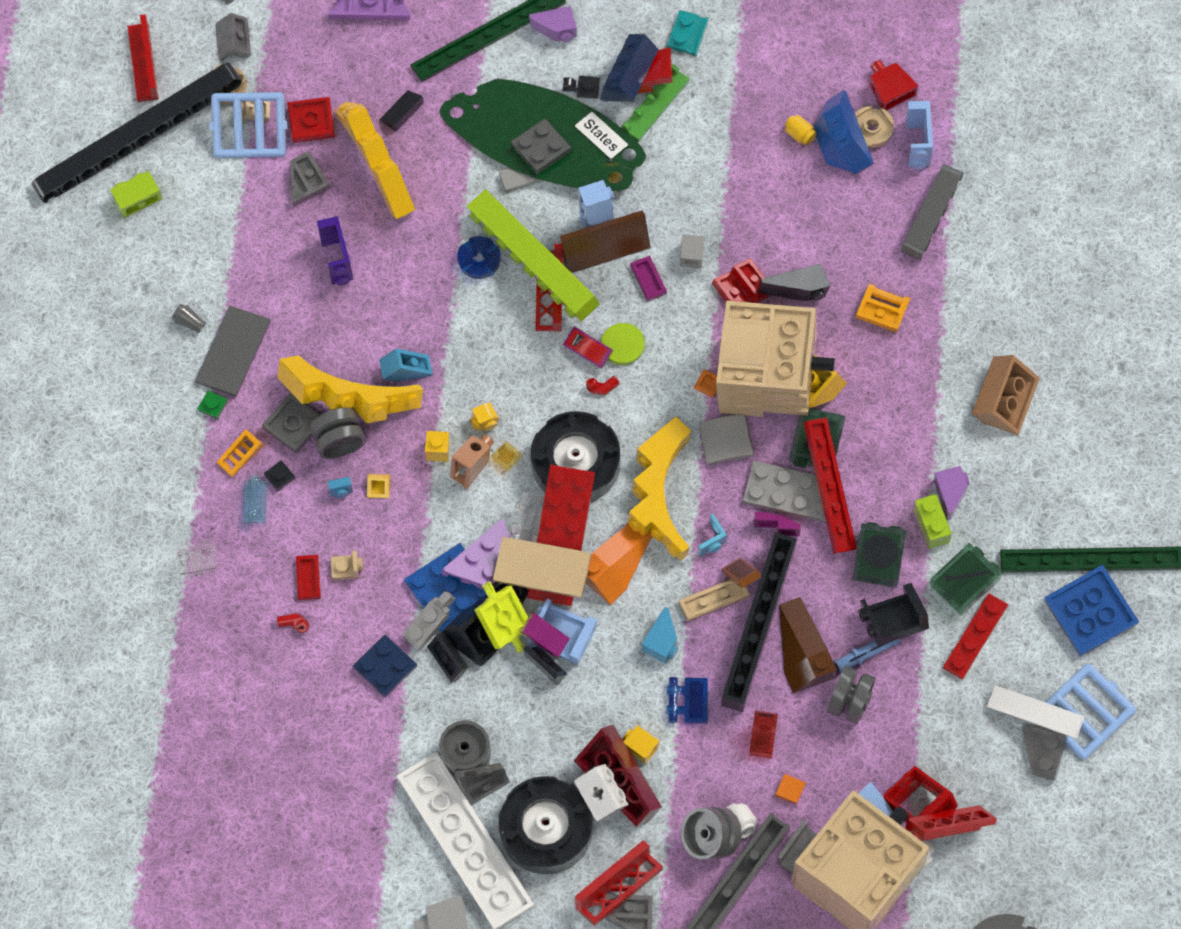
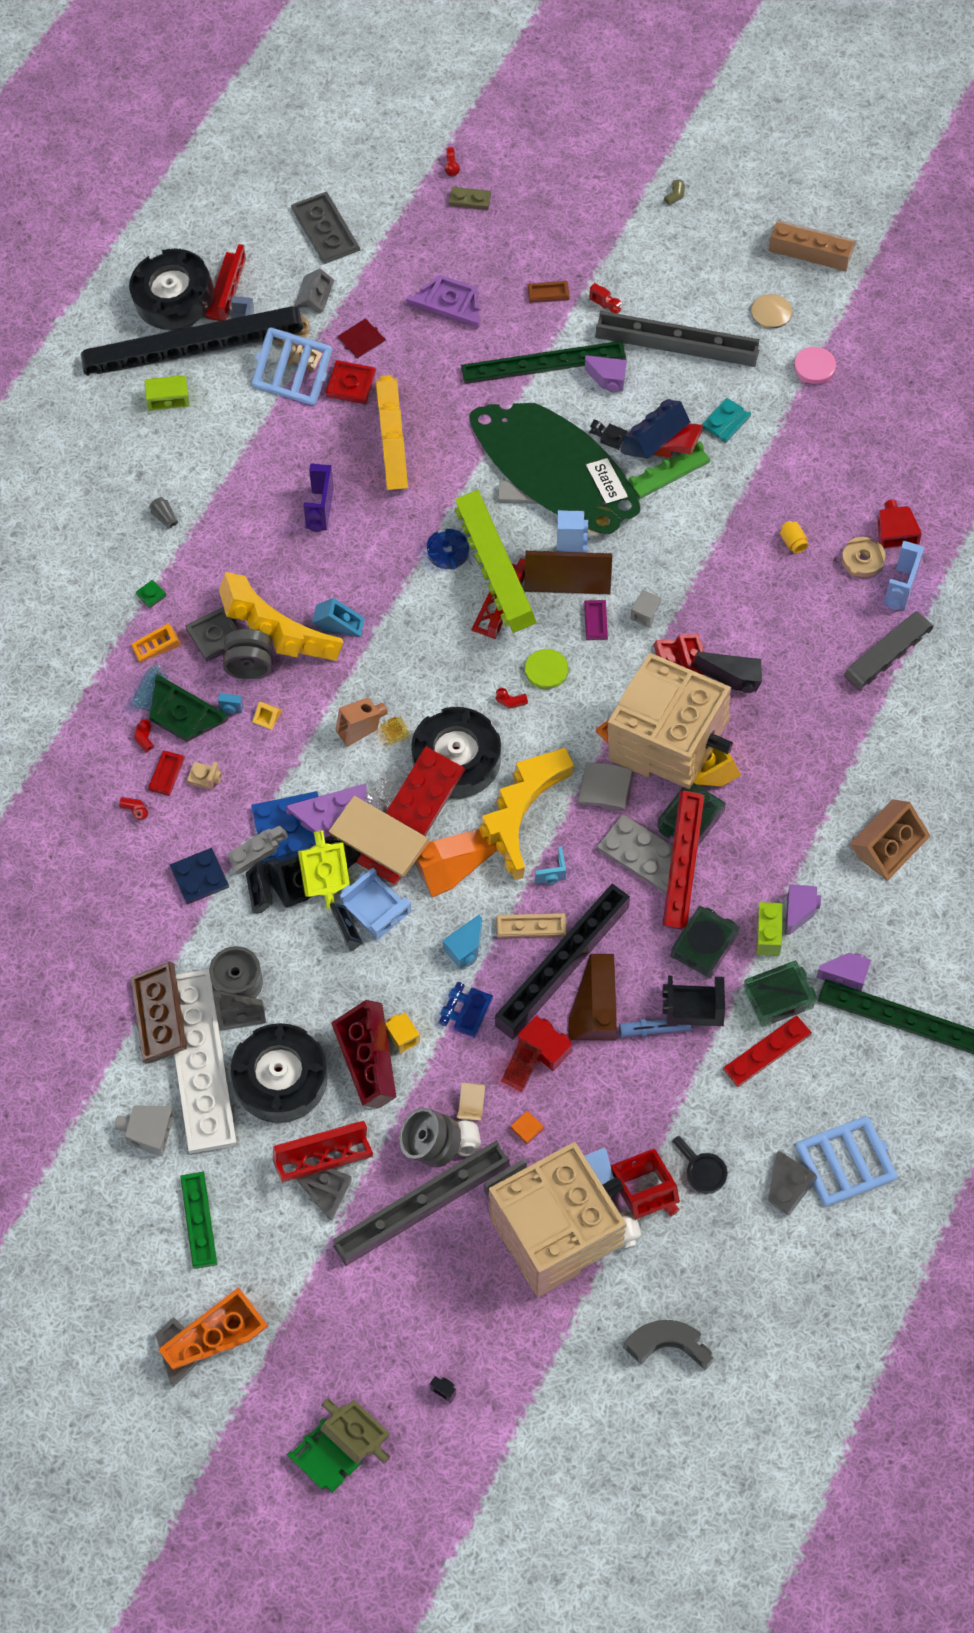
camera: 20 degrees right, 5 degrees down
(93, 85) = (171, 289): none -> black piece
(170, 81) = (241, 306): none -> sand blue panel
(196, 560) = (72, 722): clear brick -> none
(232, 351) = (190, 554): dark grey tile -> none
(268, 550) = (142, 733): none -> red arm
(279, 475) = (182, 674): black plate -> none
(296, 512) = (182, 711): none -> dark green wing
(300, 69) = (361, 338): none -> dark red piece
(306, 179) = (323, 430): flat silver wing -> none
(402, 110) = (436, 401): black slope -> none
(407, 811) = (158, 1013): none -> reddish brown tile
(437, 446) = (334, 697): yellow brick -> none
(484, 417) = (389, 688): yellow plate -> none
(541, 146) = (546, 471): dark grey plate -> none
(544, 635) = (355, 899): magenta tile -> none
(587, 347) = (512, 660): slope -> none
(591, 787) = (341, 1060): white brick -> none
(731, 785) = (471, 1101): none -> tan bracket
(741, 573) = (565, 910): dark orange tile -> none
(773, 700) = (554, 1046): none -> red brick
(784, 525) = (624, 880): magenta slope -> none
(841, 136) = (831, 555): blue wedge -> none
(849, 694) = (621, 1059): dark grey wheel -> none
(881, 313) = (802, 725): light orange plate -> none
(949, 823) = (661, 1213): red fence -> none
(965, 769) = (705, 1171): none -> black piece
(1017, 534) = (846, 970): none -> medium lavender slope
(1035, 711) = (794, 1141): white slope -> none
(1091, 610) = (890, 1067): blue plate -> none

